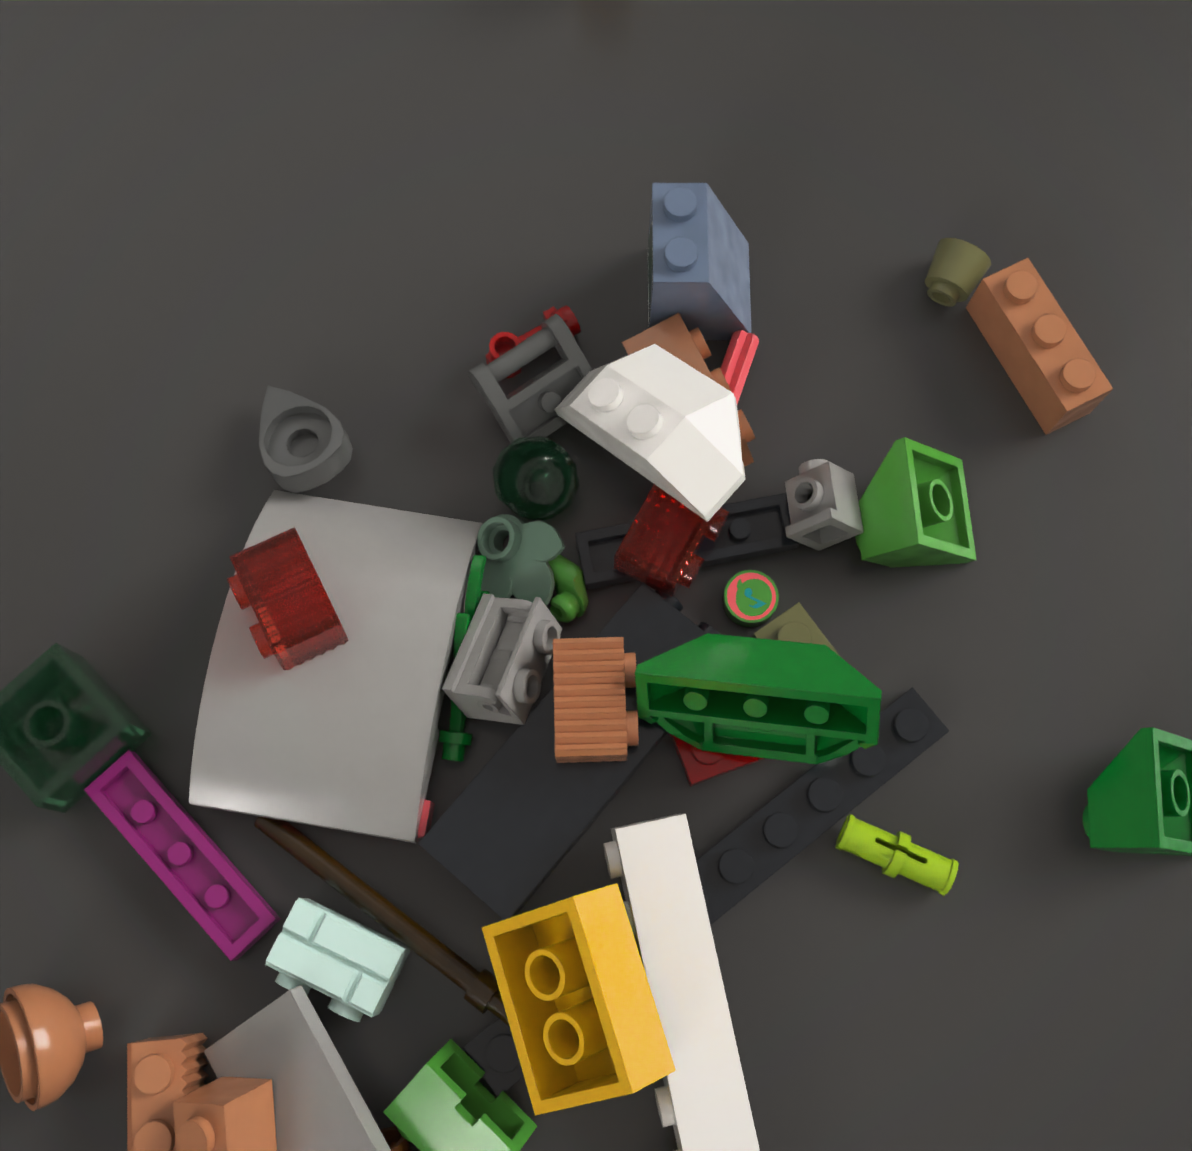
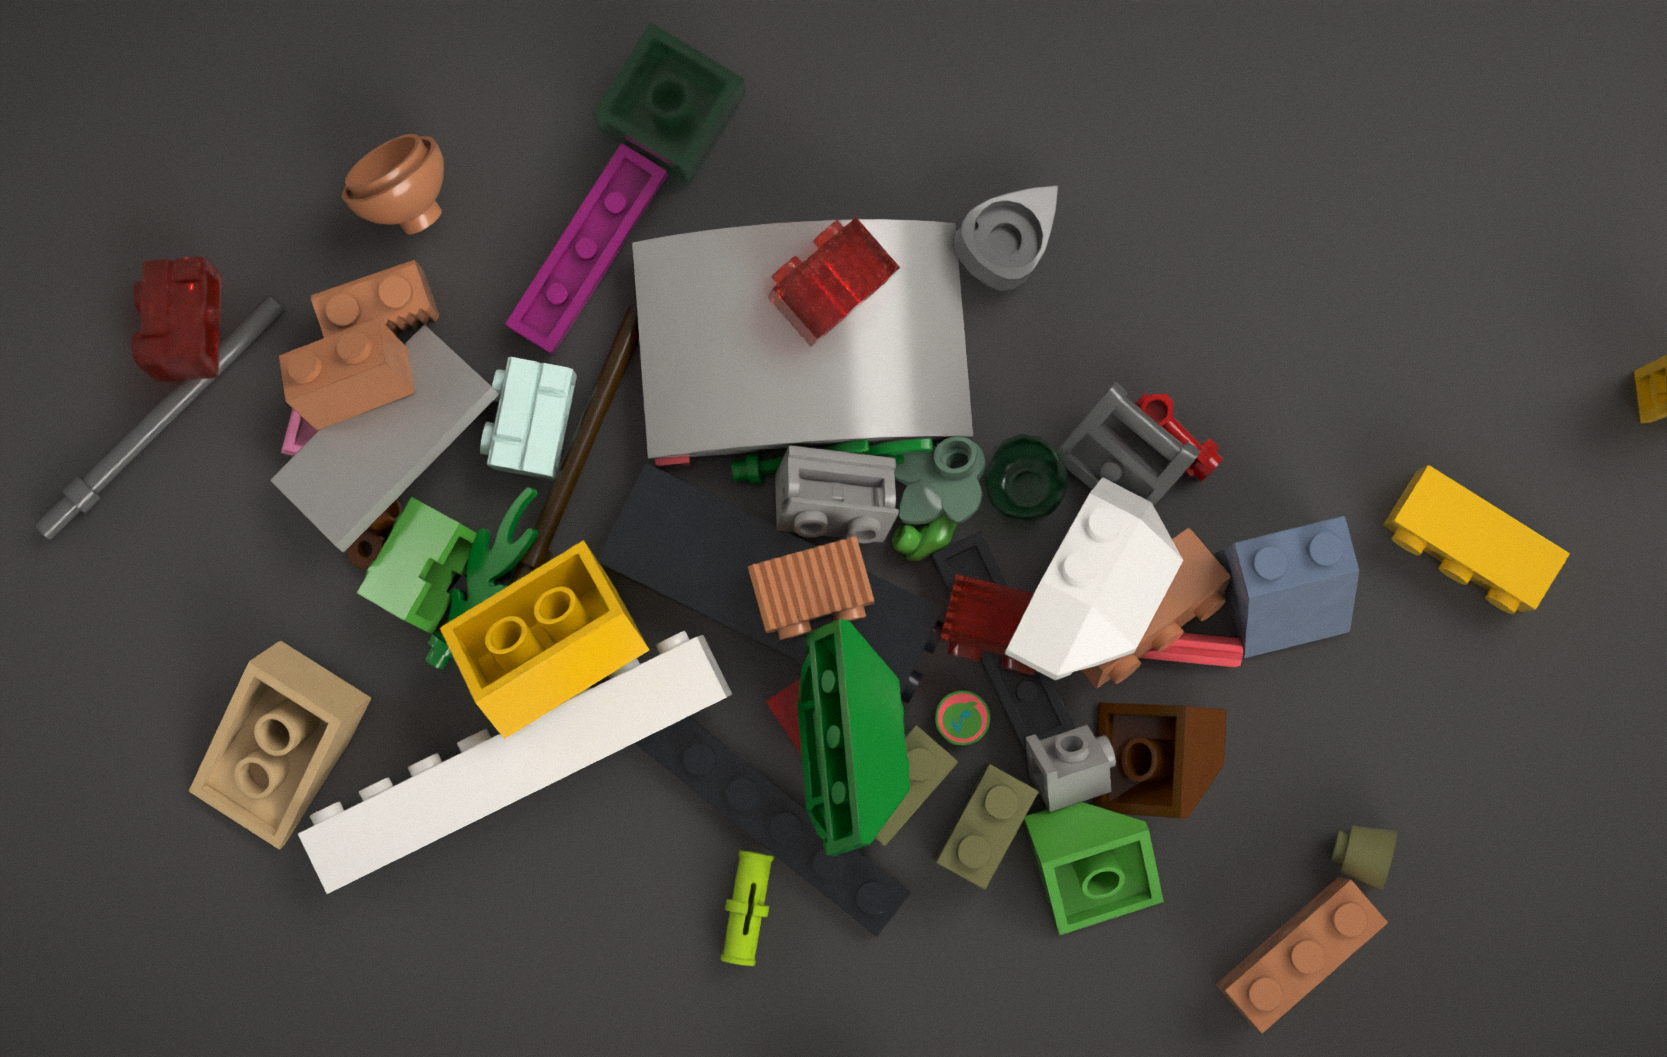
camera: 75 degrees right, 10 degrees up
(484, 1050) = (484, 568): none -> green piece
(693, 118) = (1475, 541): none -> yellow brick
(832, 418) = (1161, 756): none -> reddish brown slope
(863, 597) = (986, 826): none -> olive brick

